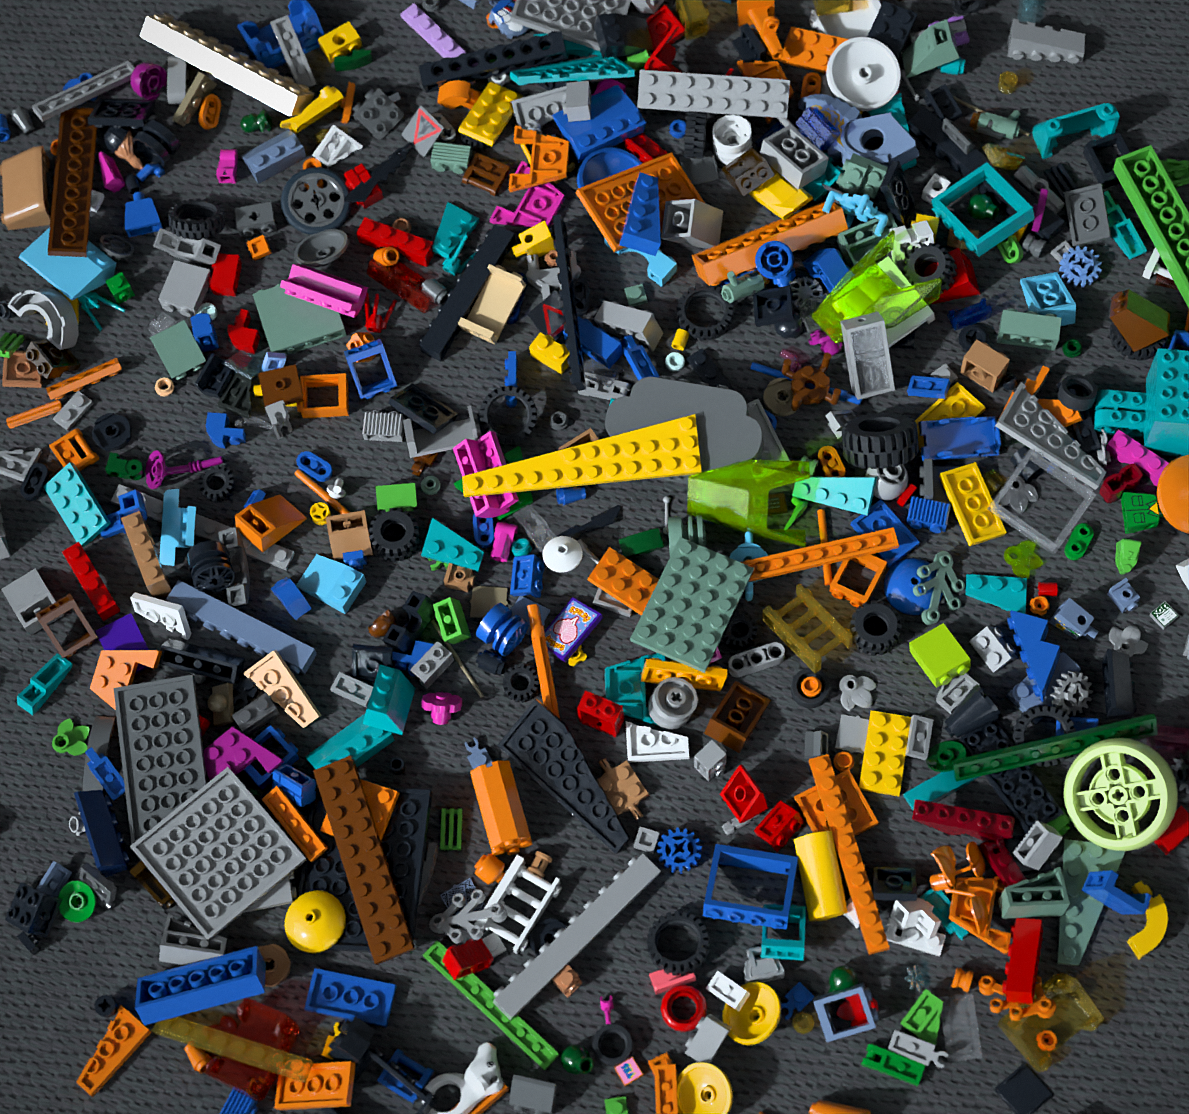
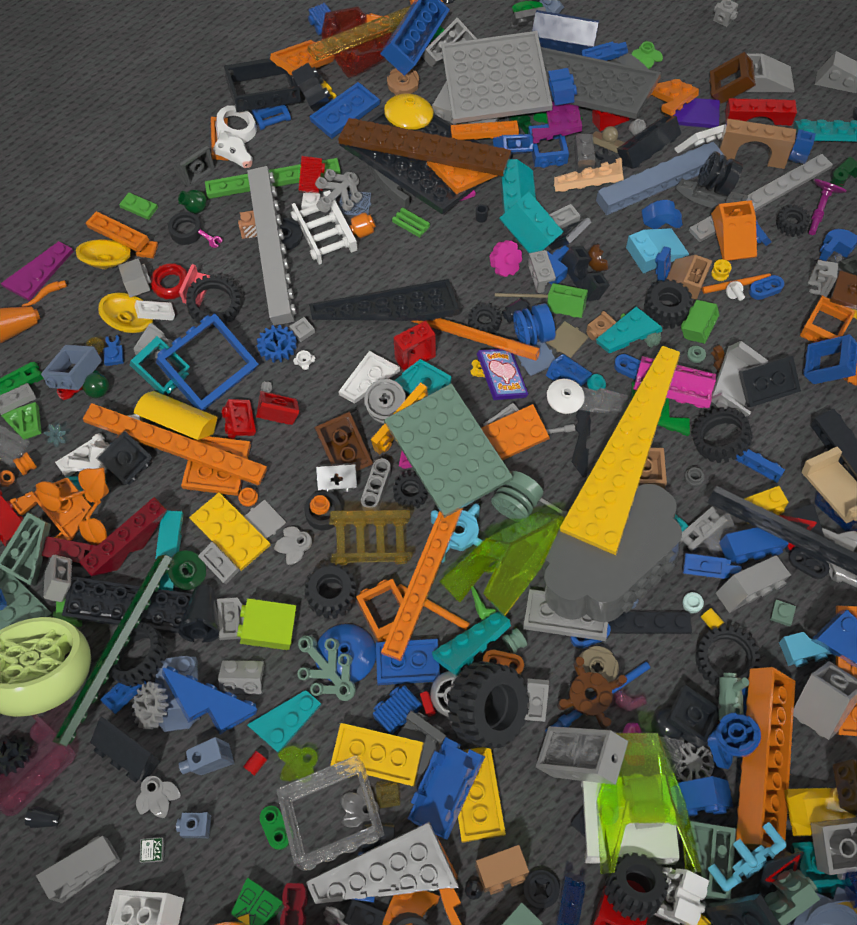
camera: 120 degrees right, 5 degrees down
(43, 684) = (697, 55): teal slope -> none
(177, 527) = (769, 177): medium azure plate -> none
(196, 772) = (562, 86): none -> blue piece
(383, 426) = (774, 345): light grey brick -> none
(478, 756) = (447, 265): sand blue plate -> none
(501, 808) = (397, 249): orange brick -> none
(503, 540) = (613, 377): dark pink piece -> none
(545, 859) = (341, 255): medium nougat bush -> none
(622, 788) = (353, 337): medium nougat plate -> none
(628, 1071) = (160, 229): tile -> none
(641, 543) = (539, 465): dark green slope -> none
(680, 811) = (304, 355): none -> white plate
(711, 760) = (320, 398): light grey brick -> none
(772, 696) = (326, 472): none -> brick
(815, 744) = (276, 484): dark grey piece -> none
(928, 387) = (518, 803): blue plate -> none
(944, 372) = (521, 829): light grey plate -> none
(1039, 600) = (247, 738): orange plate -> none
(1127, 554) = (226, 857): bright green piece -> none

